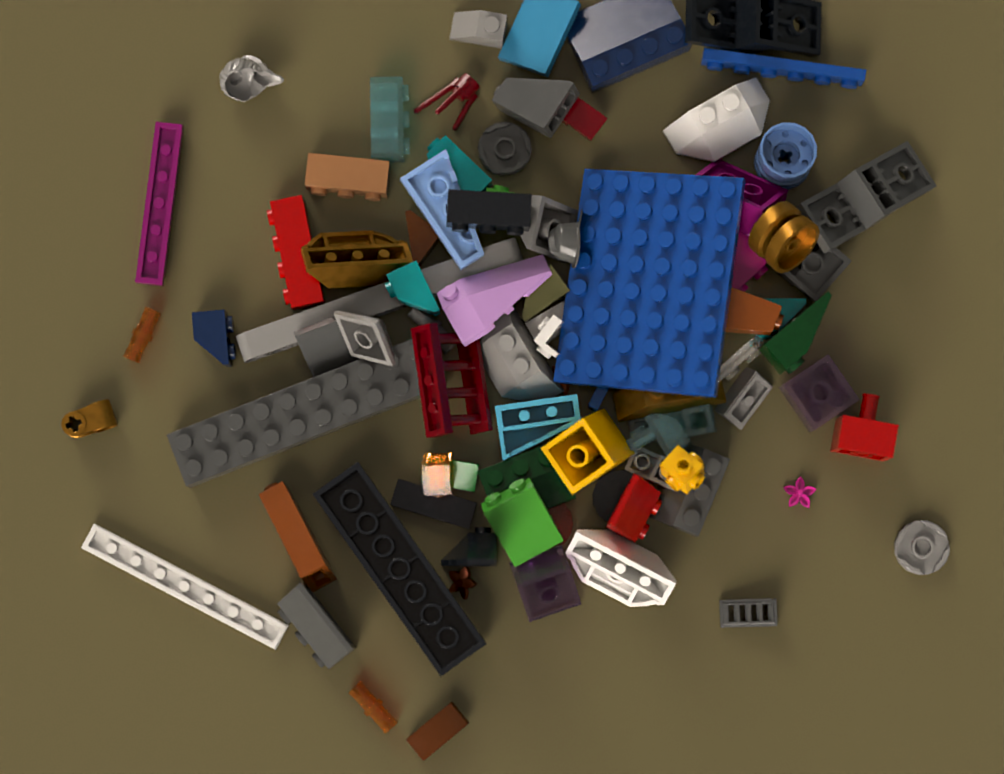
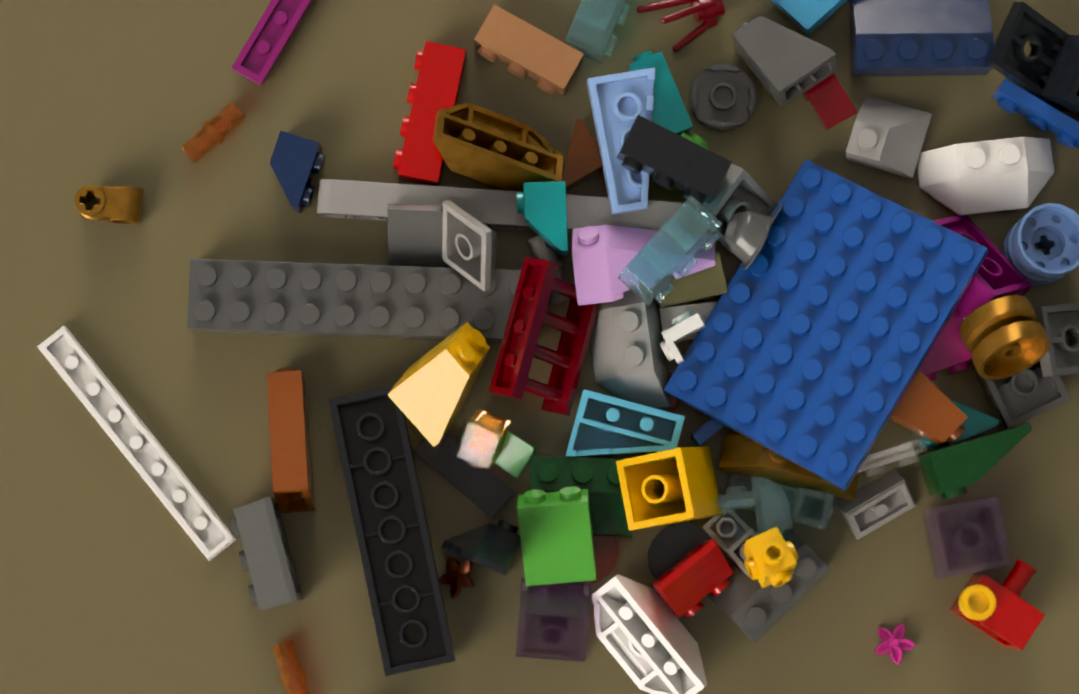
camera: 15 degrees right, 0 degrees up
(388, 445) = (440, 382): none -> yellow slope
(515, 278) = (671, 252): none -> clear light blue brick
(637, 126) = (888, 137): none -> light grey slope
(846, 437) = (977, 602): none -> yellow tile

